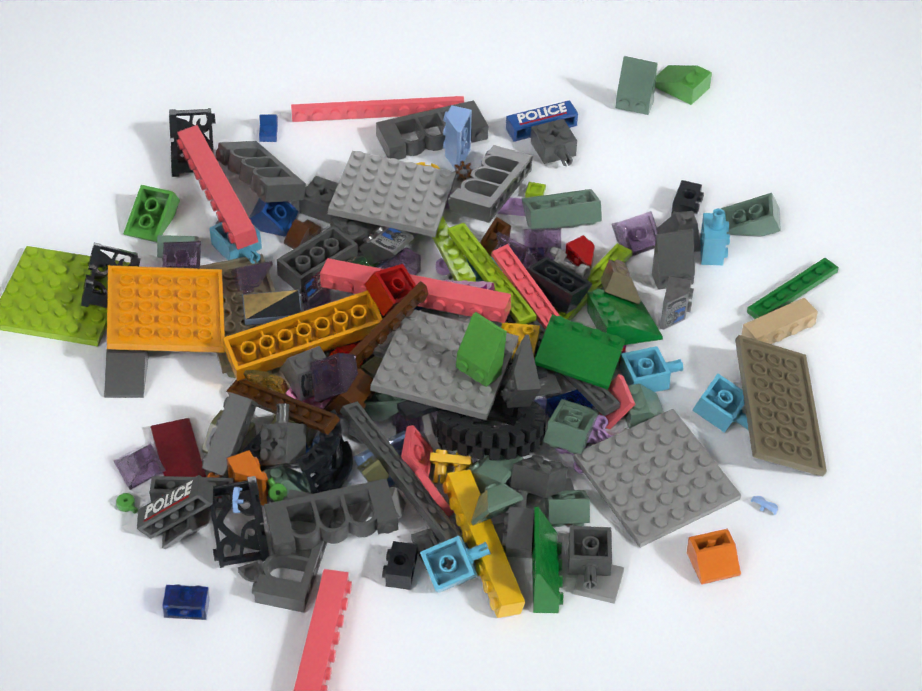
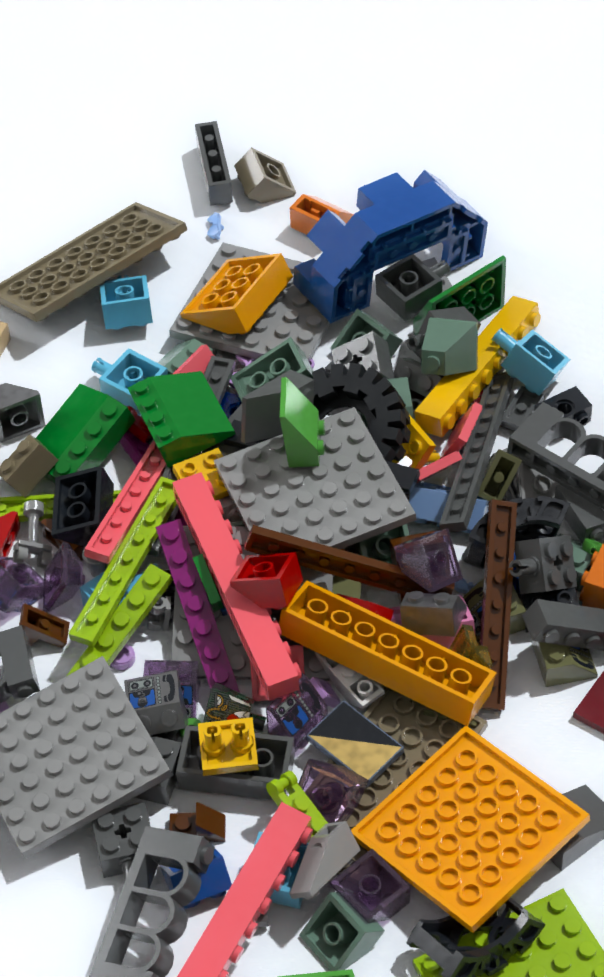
camera: 125 degrees left, 5 degrees up
(214, 245) = (324, 857): none -> light grey slope
(254, 254) = (296, 799): none -> lime plate
(321, 242) = (228, 746): none -> yellow plate
(627, 521) = (389, 227): none -> blue brick
(666, 450) = (239, 293): none -> light orange slope
(786, 555) = (263, 177): none -> dark tan slope
(825, 529) = (213, 163): none -> dark grey brick

